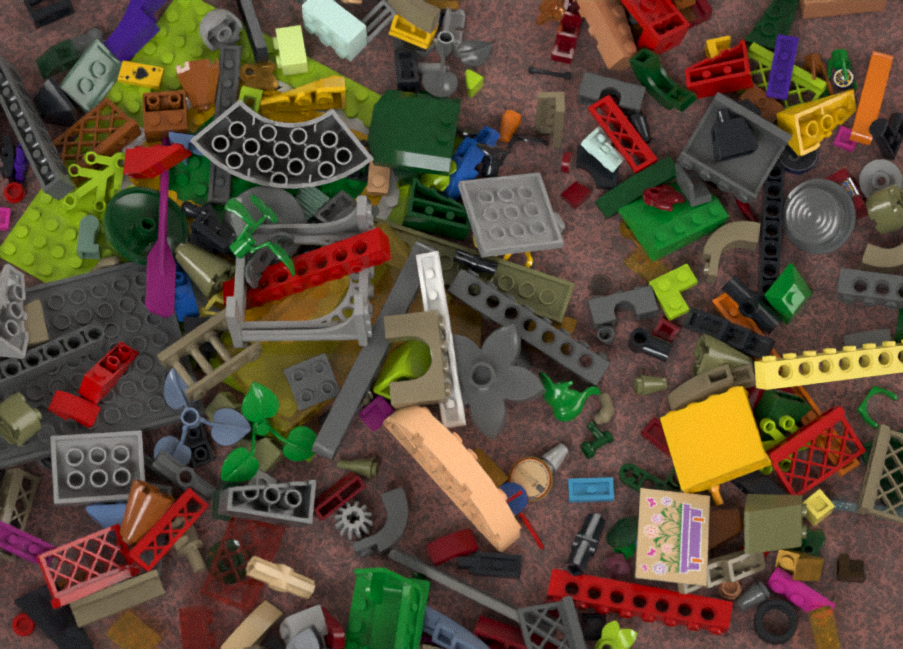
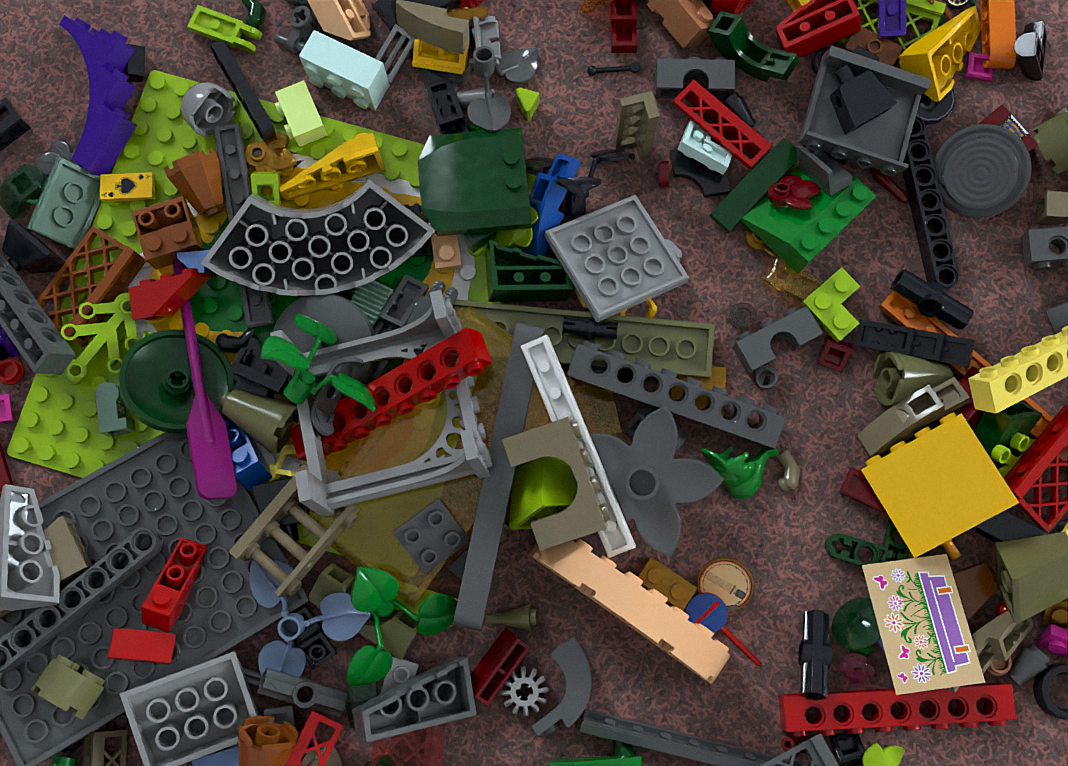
camera: 10 degrees left, 10 degrees up
(107, 262) = (141, 436): dark tan arm -> none
(376, 413) = (517, 546): magenta panel -> none
(451, 546) = (652, 694): dark red slope -> none
(492, 565) = (707, 704): black hinge -> none
(509, 123) = (583, 144): orange cone -> none
(555, 457) = (745, 548): light grey cone -> none
(576, 195) = (683, 211): dark red slope -> none
(590, 490) = (799, 578): dark azure plate -> none
(601, 439) = (795, 510): dark green piece -> none
(648, 384) = (831, 428): olive cone -> none
(652, 345) = (823, 378): black piece -> none
(732, 235) = (886, 216): dark tan arch -> none
(788, 294) = (972, 277): green slope -> none
(873, 171) = (1045, 95): light grey dish -> none

